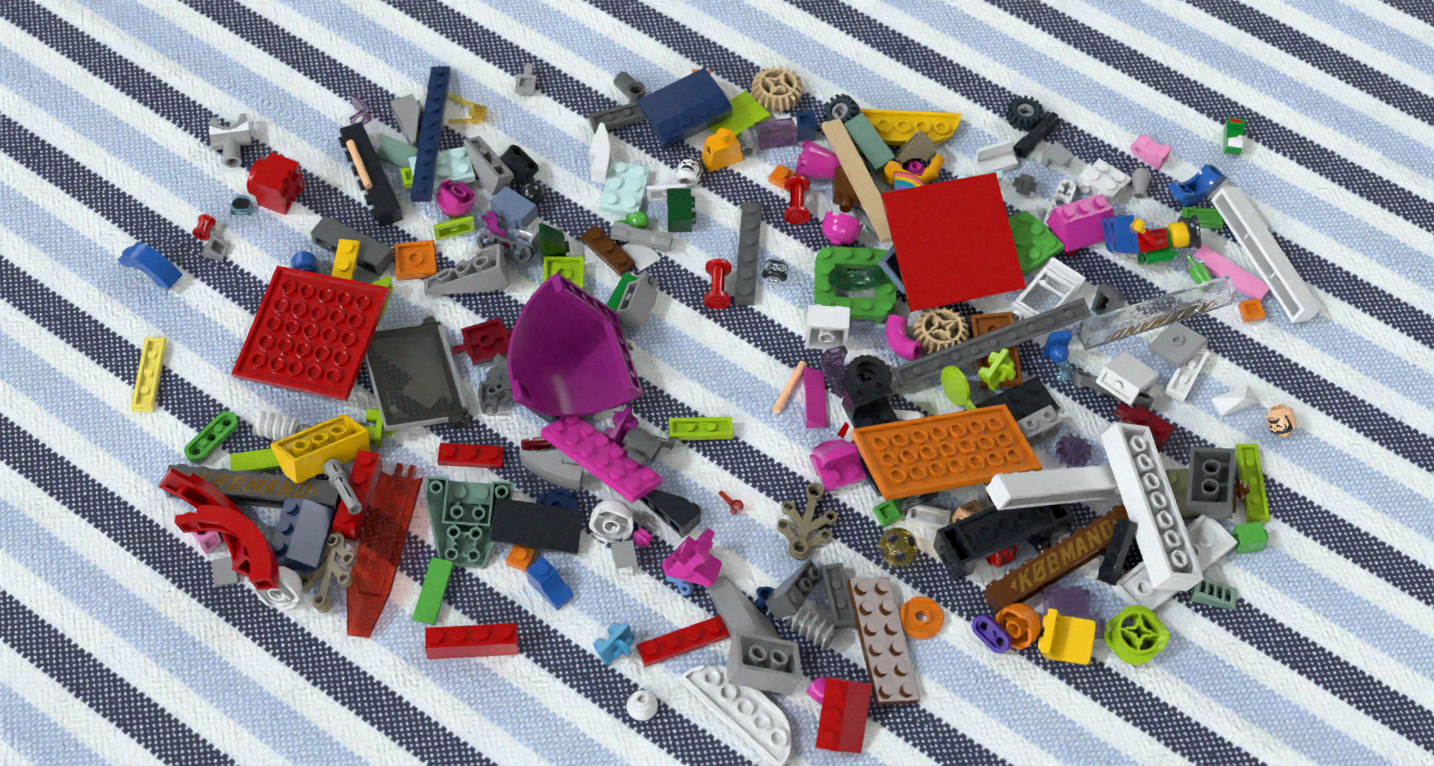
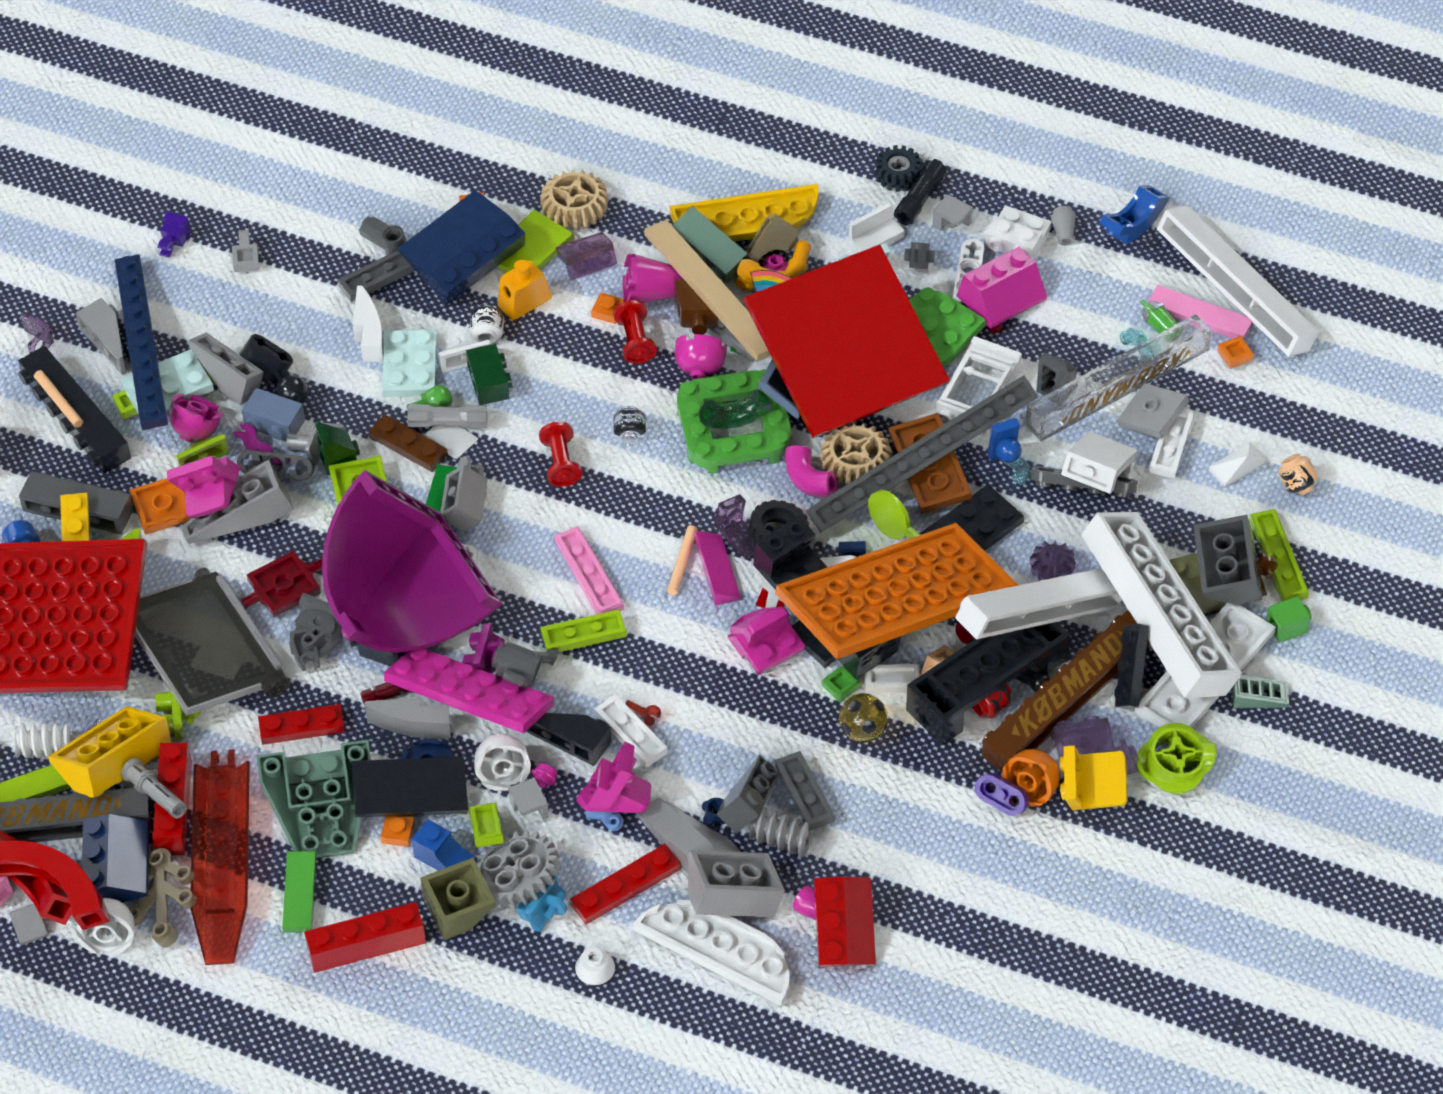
camera: 10 degrees left, 5 degrees down
(396, 152) = (100, 375): sand green slope -> none
(448, 253) = (206, 484): none -> dark pink piece
(476, 111) = (190, 303): clear yellow plant -> none
(479, 54) = (173, 232): none -> dark purple piece
(549, 625) = (457, 897): none -> olive slope
(587, 569) = (486, 825): none -> lime tile
(599, 612) = (519, 868): none -> light grey gear
(716, 381) = (588, 571): none -> bright pink tile
(717, 516) = (629, 728): none -> white plate
(748, 144) = (555, 275): light grey cone -> none
(748, 253) = (588, 410): dark grey plate -> none
(806, 126) = (624, 237): dark blue panel -> none
(806, 524) = (744, 718): dark tan plant -> none
(827, 326) = (711, 476): white brick -> none
(841, 102) = (661, 200): black bush -> none
(882, 641) = (871, 830): plate -> none
(917, 629) = (908, 809): orange tile -> none
(920, 406) = (854, 548): none -> dark blue tile
(1000, 369) = (940, 483): lime hips -> none
(1040, 425) = (1006, 540): light grey brick -> none
(1150, 151) = (1068, 184): bright pink leg -> none
(1151, 244) = (1093, 296): piece -> none
(1160, 430) = (1152, 513): dark red hinge -> none
(1174, 281) = (1132, 336): none -> clear light blue arm
(1207, 217) = (1149, 253): bright green tile -> none
(1233, 135) = (1167, 144): green leg -> none

